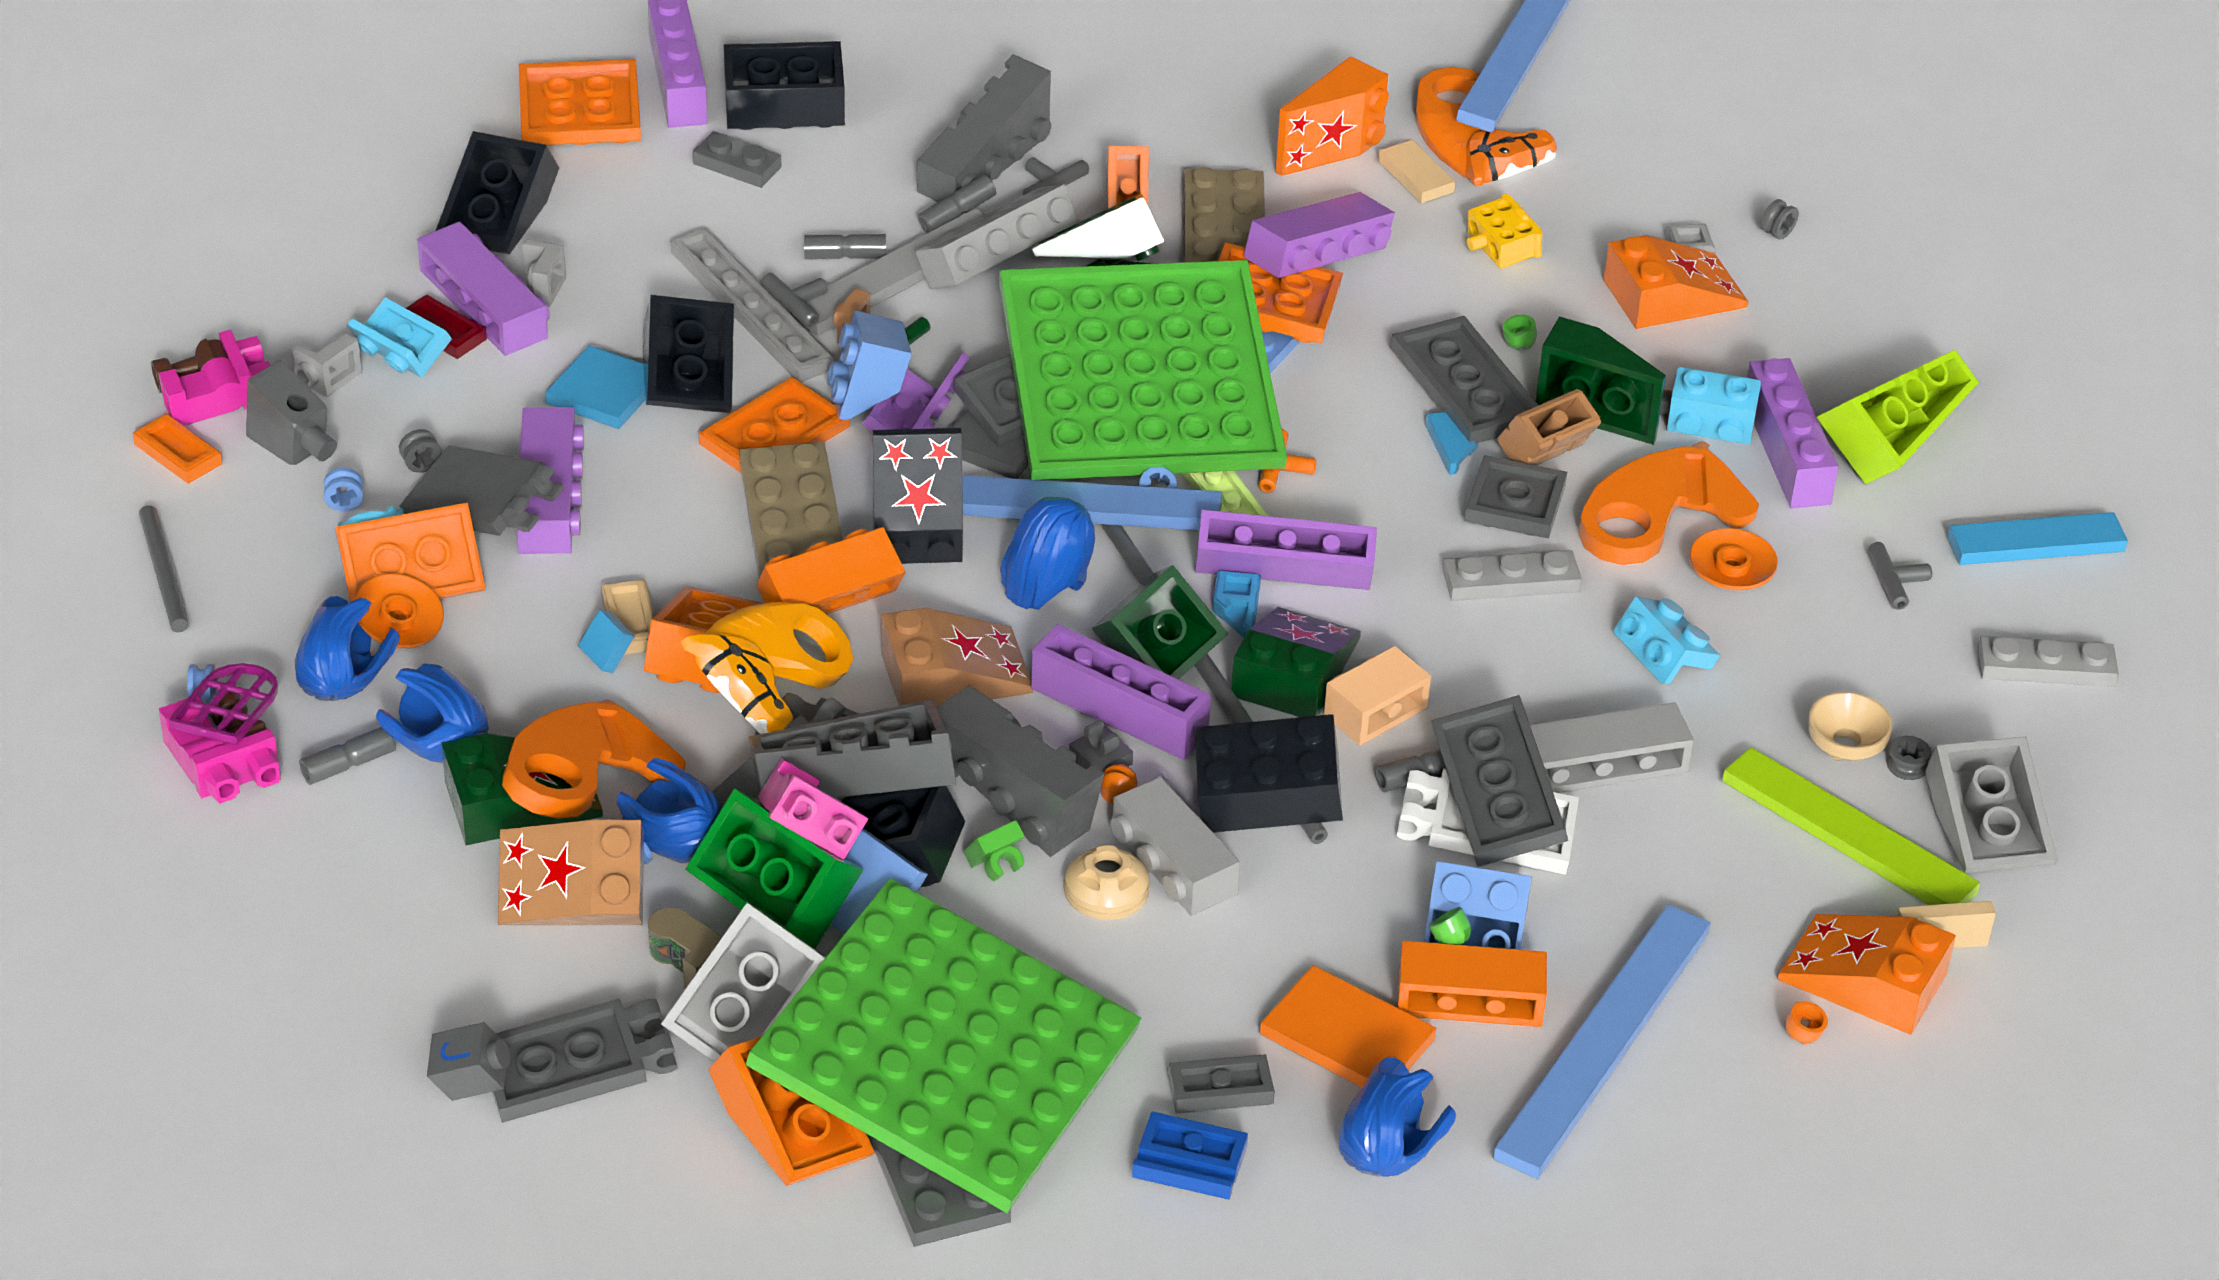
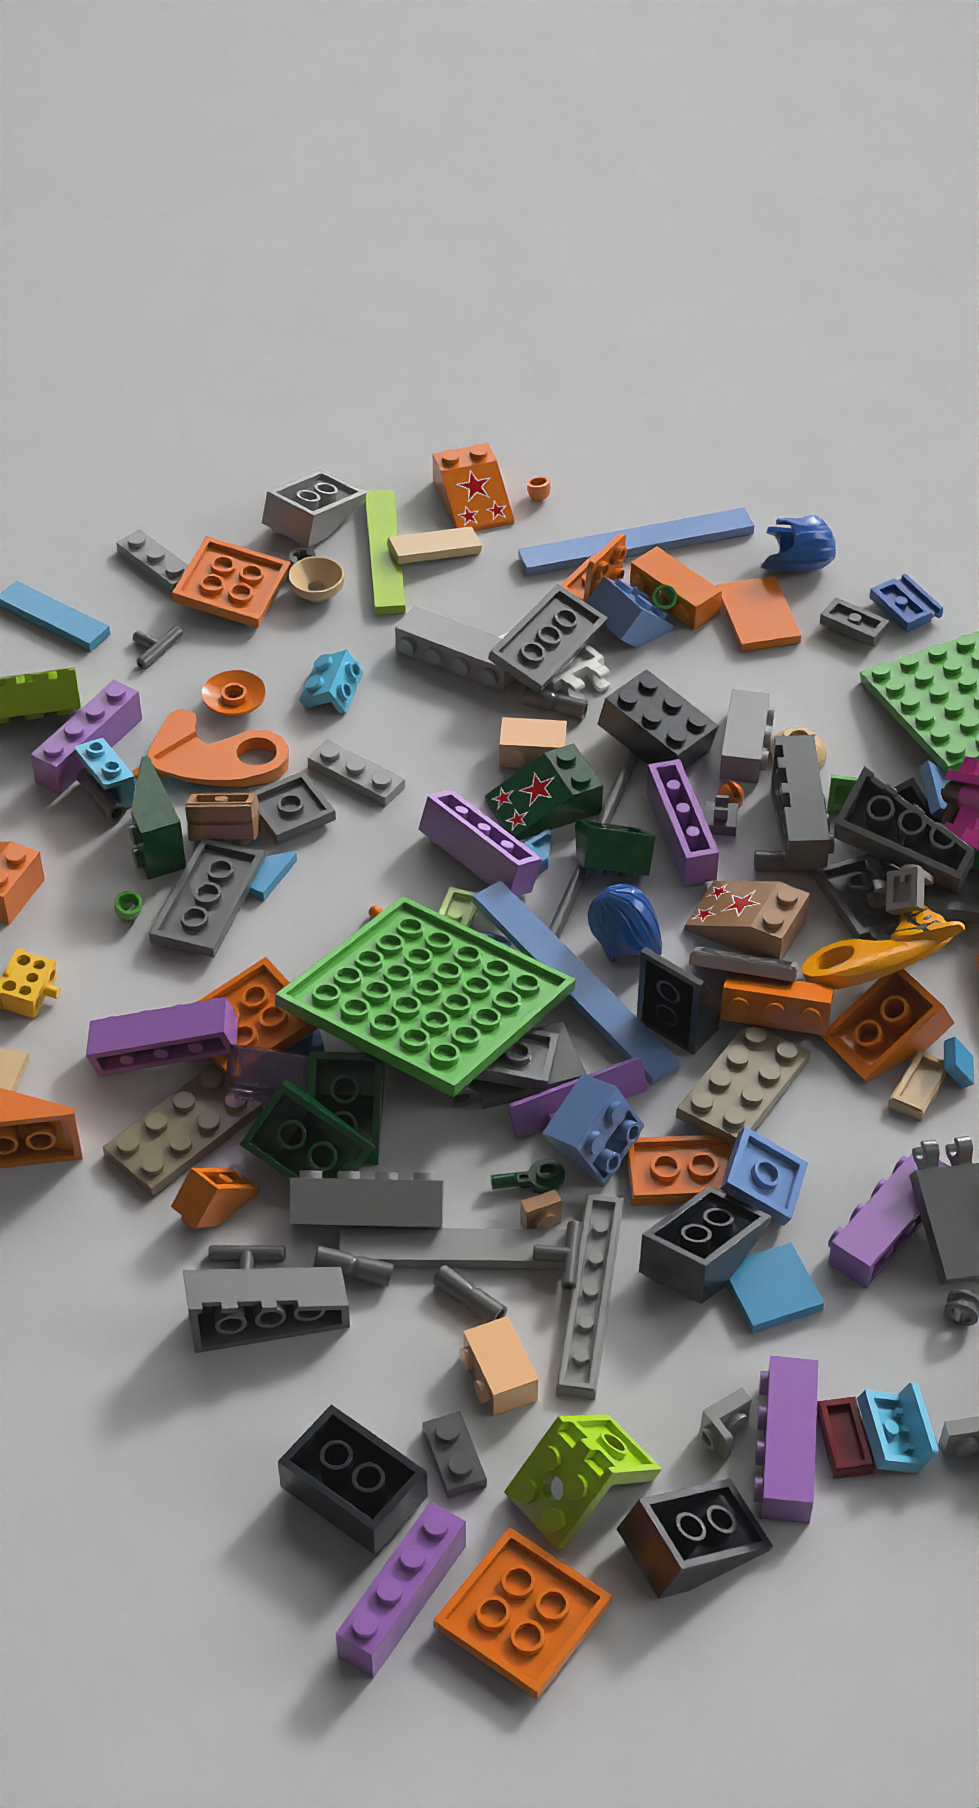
camera: 135 degrees left, 5 degrees up
(615, 160) = (588, 1458): none -> lime bracket
(689, 436) = (764, 1175): none -> medium blue plate
(761, 210) = (500, 1366): none -> light nougat brick
(795, 704) = (906, 889): none -> light grey bracket
(895, 580) = (744, 963): none -> light grey tile
(1201, 239) = (262, 1070): none -> clear purple brick
(1570, 921) = (604, 564): none -> orange bracket
(1801, 861) = (434, 545): none -> tan tile
(1927, 668) = (231, 582): none -> orange plate
(1968, 921) = (414, 482): tan tile -> none

